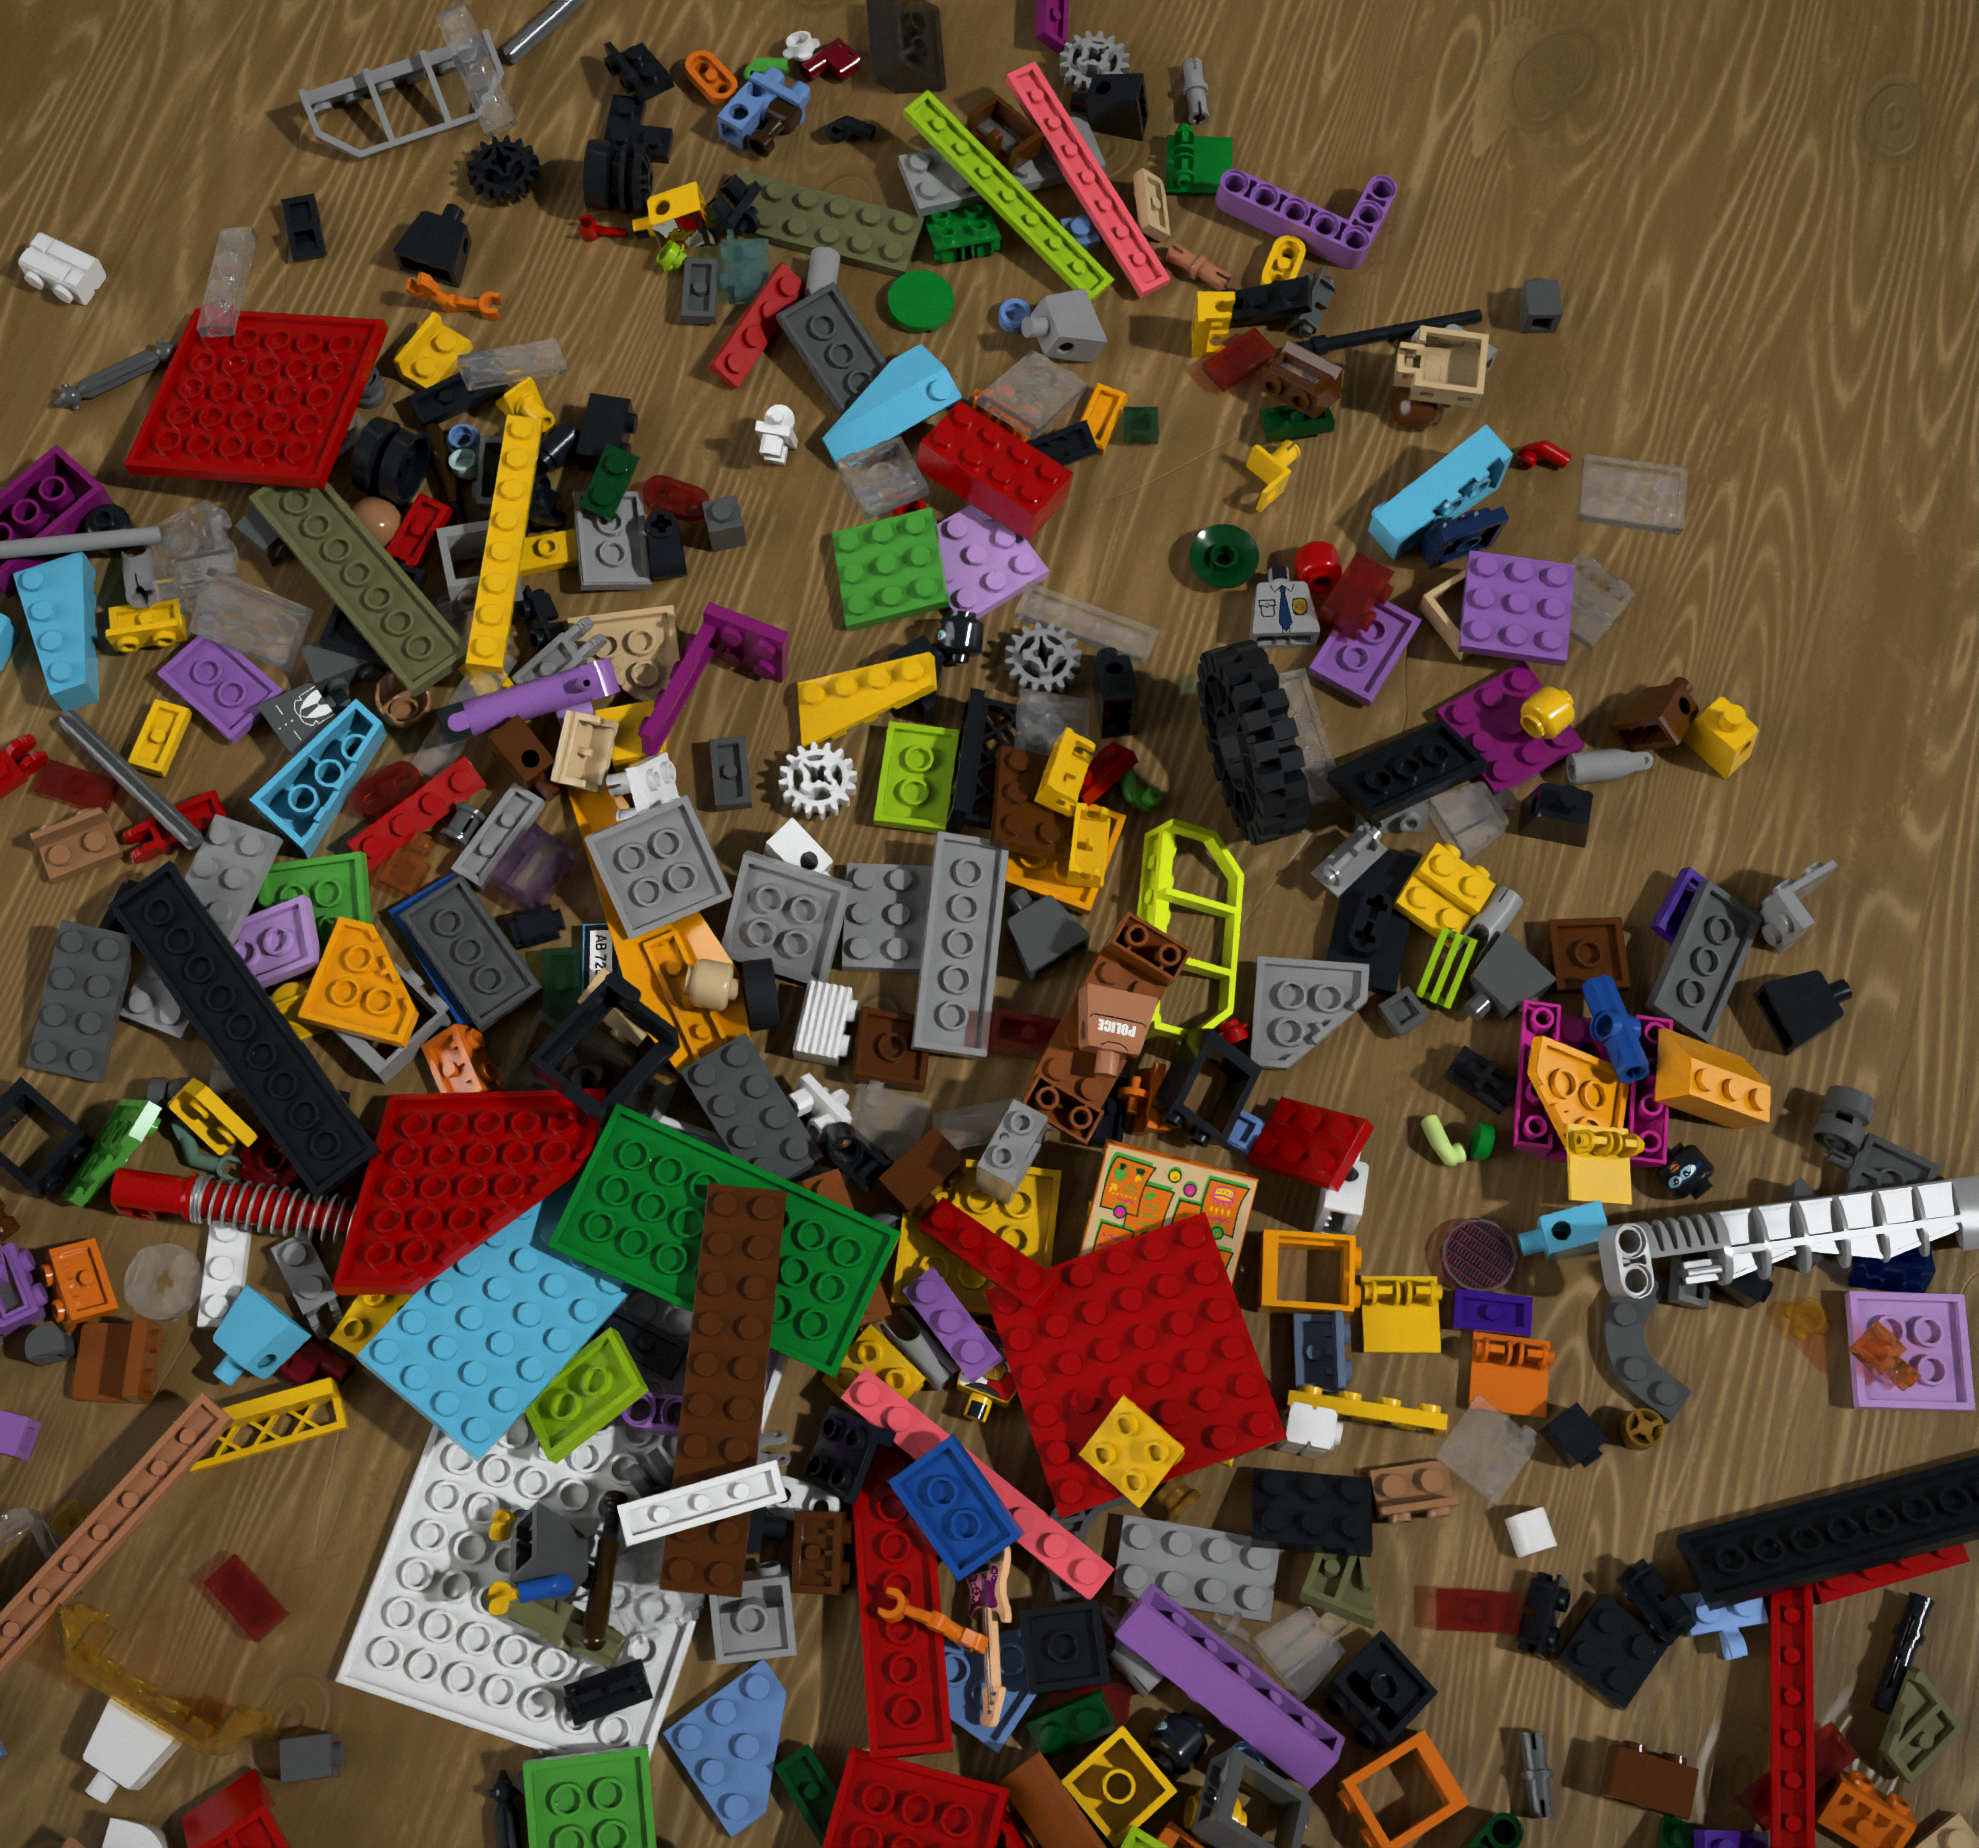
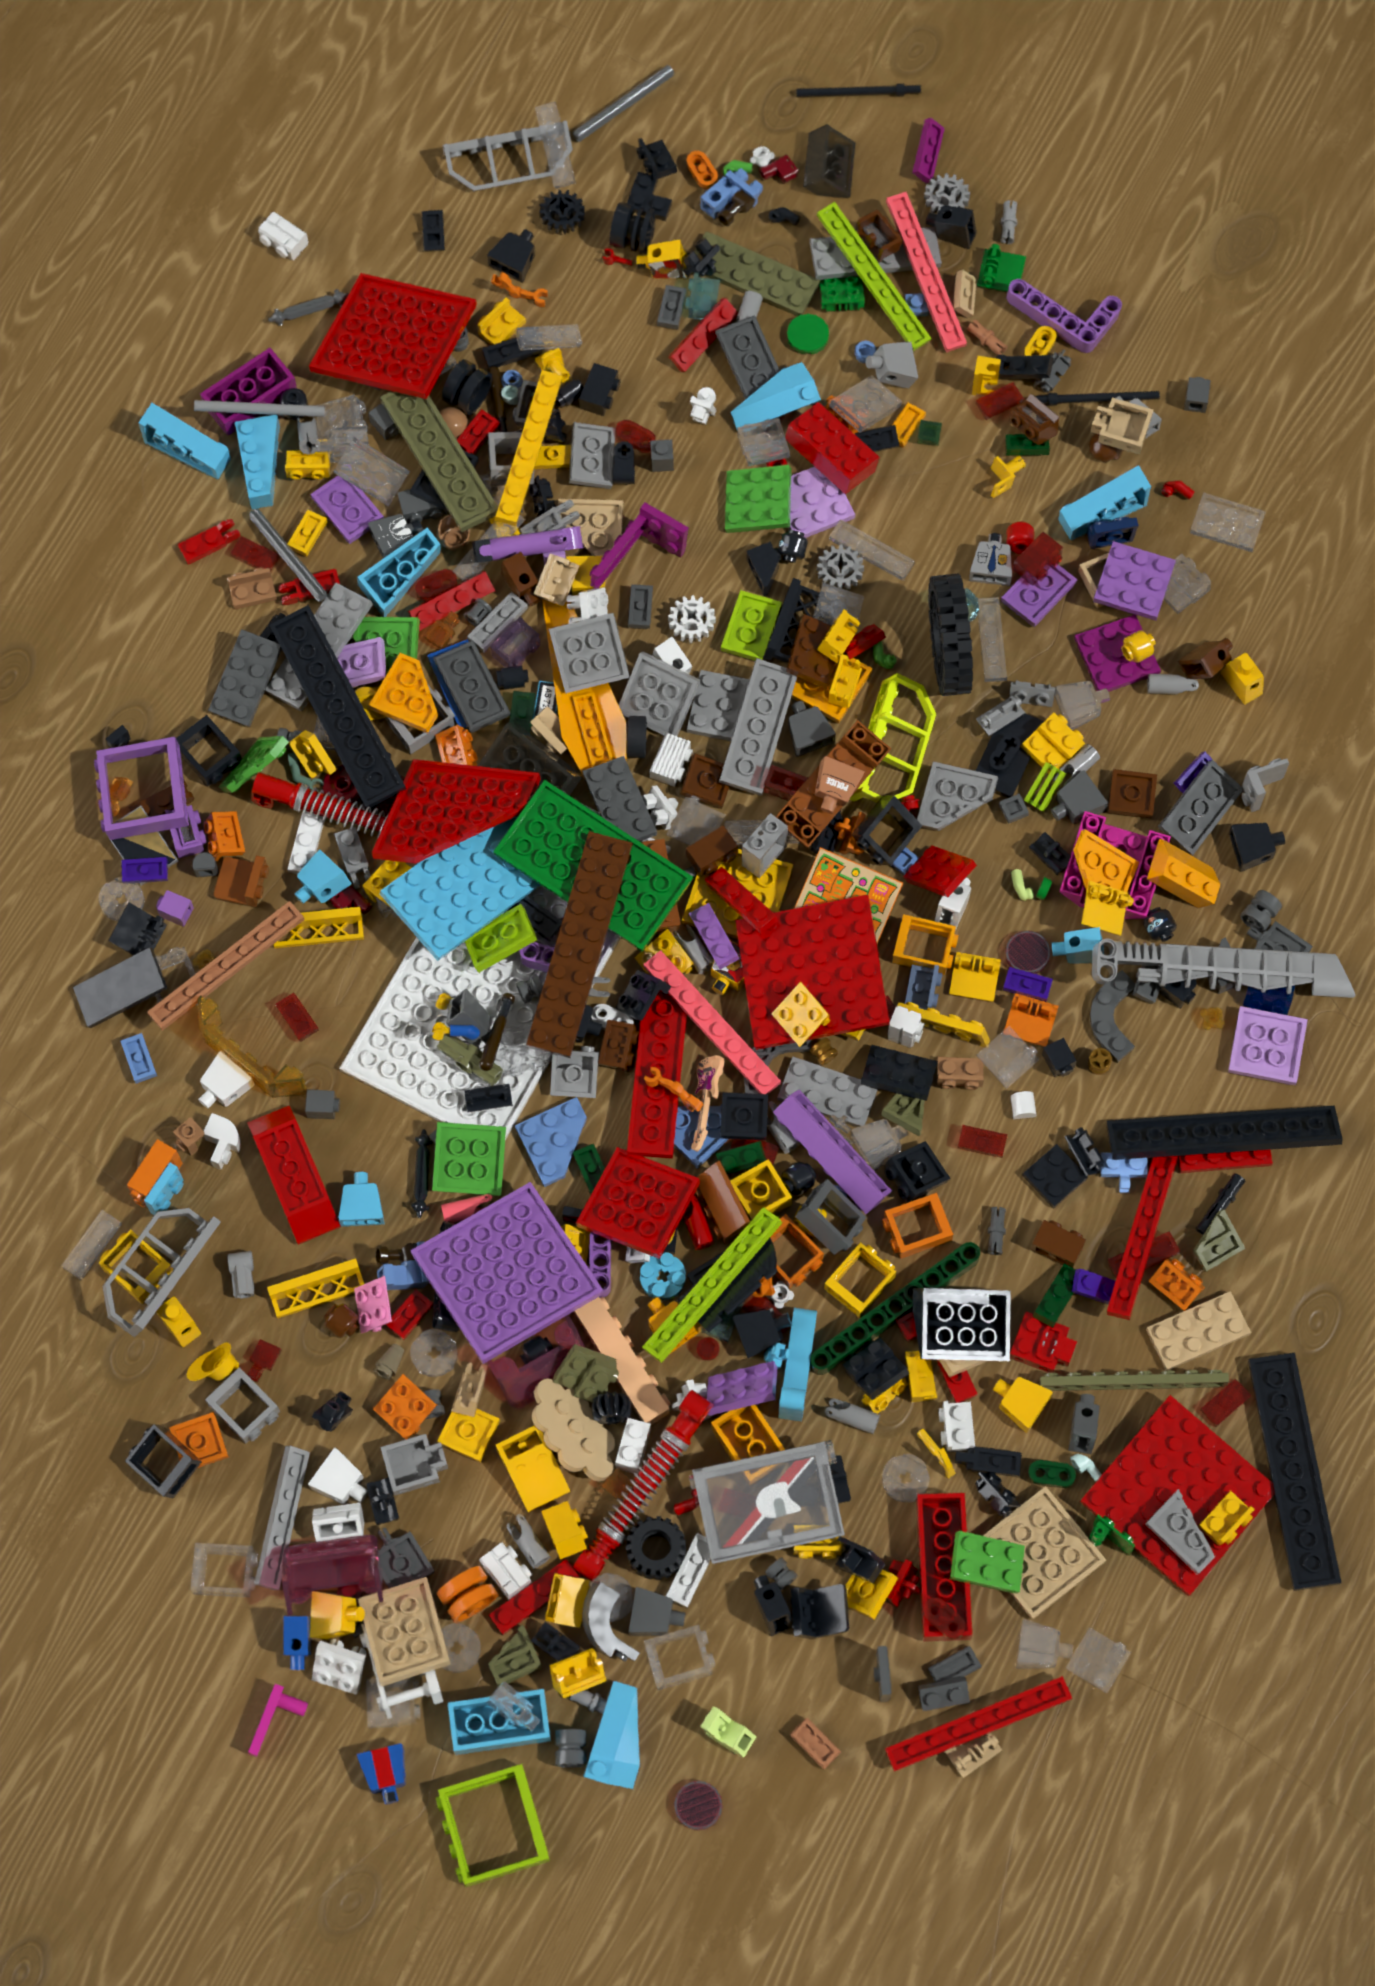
camera: 15 degrees right, 0 degrees up
(150, 1265) = (272, 830): clear plate -> none
(227, 282) = (382, 259): clear plate -> none
(609, 483) = (596, 420): dark green plate -> none
(625, 997) = (553, 720): black piece -> none
(671, 256) = (657, 282): lime plate -> none
(702, 1503) = (557, 1000): white plate -> none
(711, 984) = (608, 725): tan head -> none
(859, 695) = (722, 572): yellow wing -> none
(860, 1160) = (678, 837): black piece -> none
(956, 1507) = (697, 1031): blue plate -> none
(1115, 683) = (879, 589): black torso -> none
(1226, 543) = (964, 513): dark green dish -> none
(1407, 771) = (1046, 668): black plate -> none
(1542, 1631) = (1025, 1141): black hinge -> none
(1556, 814) = (1133, 709): black torso -> none
(1615, 1029) = (1134, 835): blue piece -> none
(1881, 1352) = (1248, 1040): clear orange plate -> none

